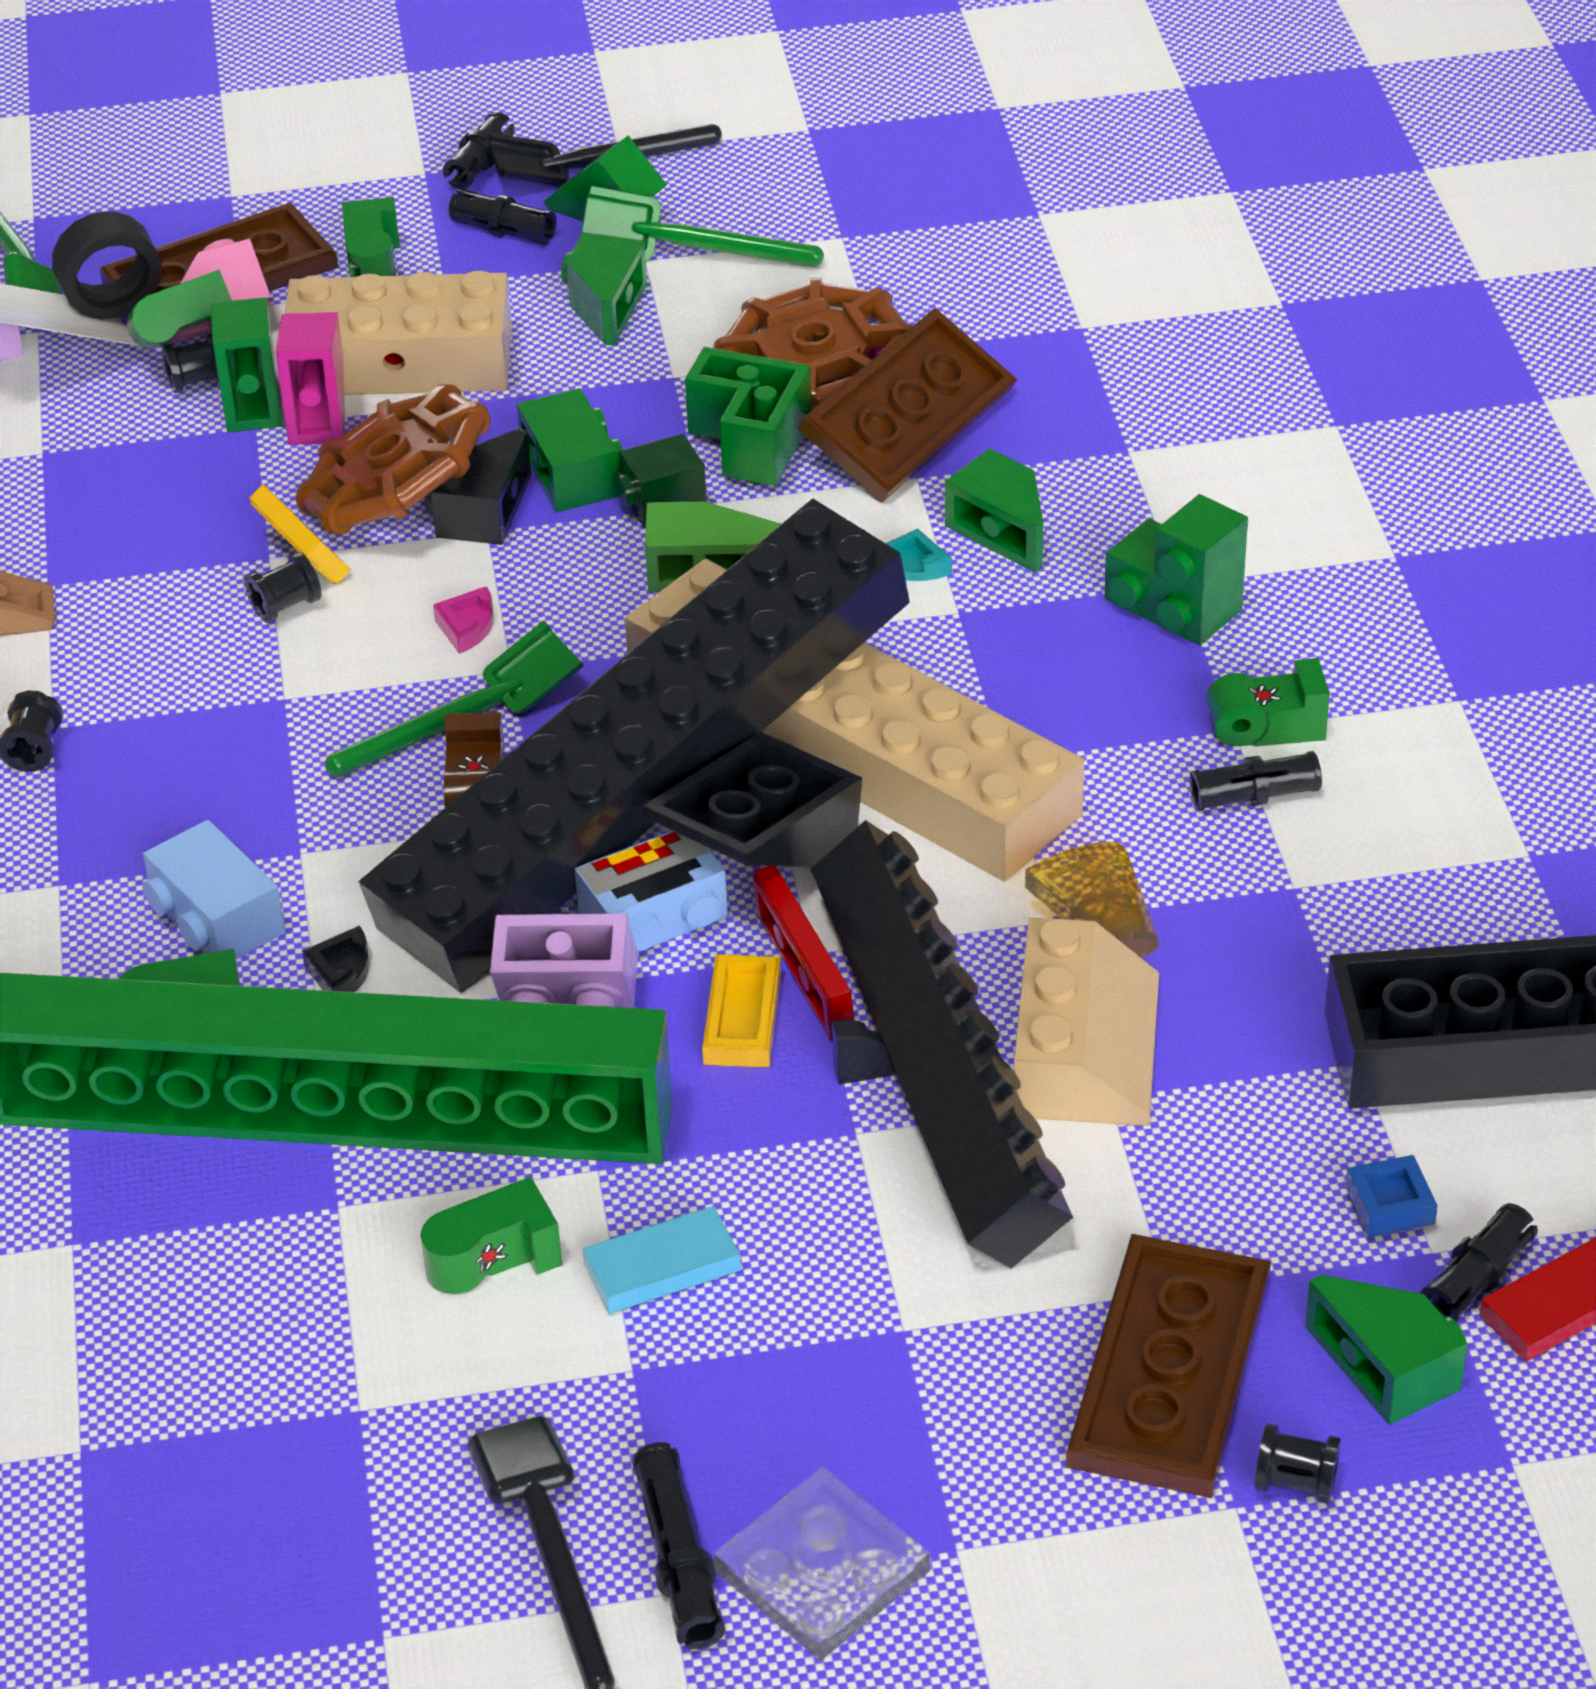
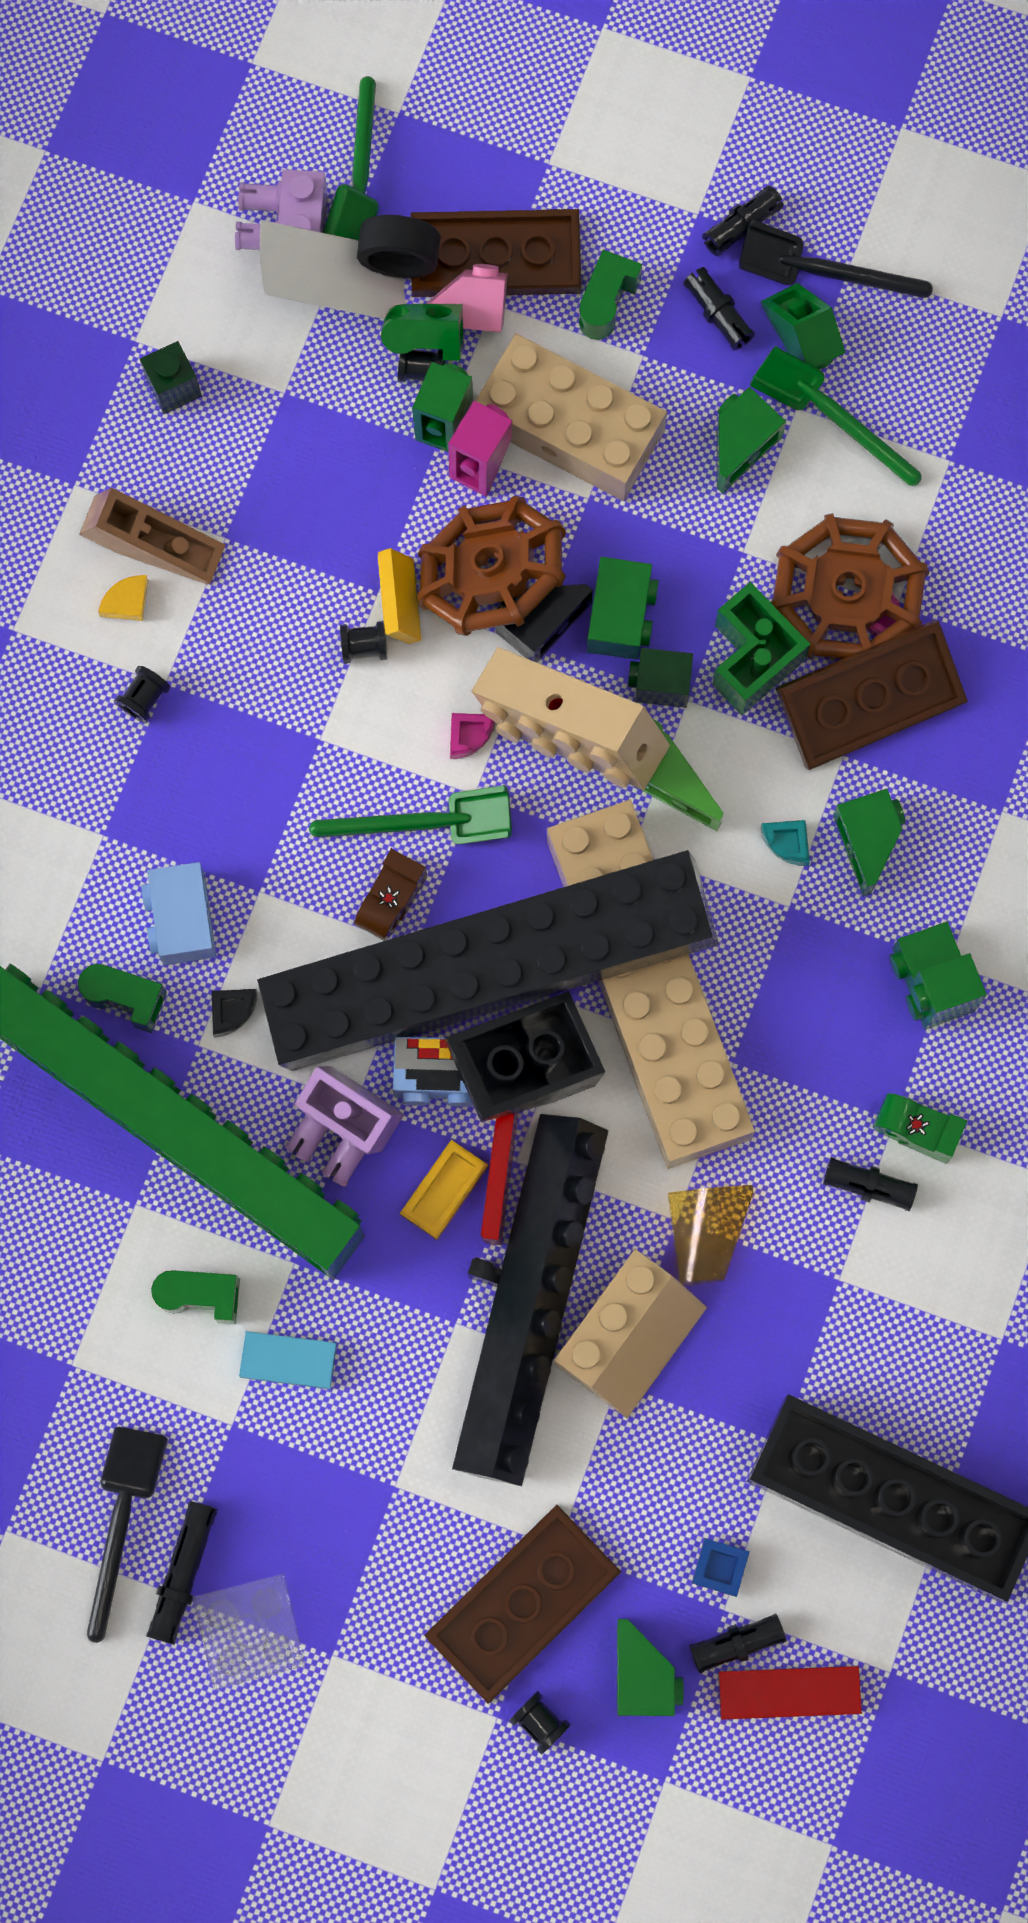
camera: 30 degrees right, 35 degrees up
(584, 506) = (570, 719): none -> tan brick

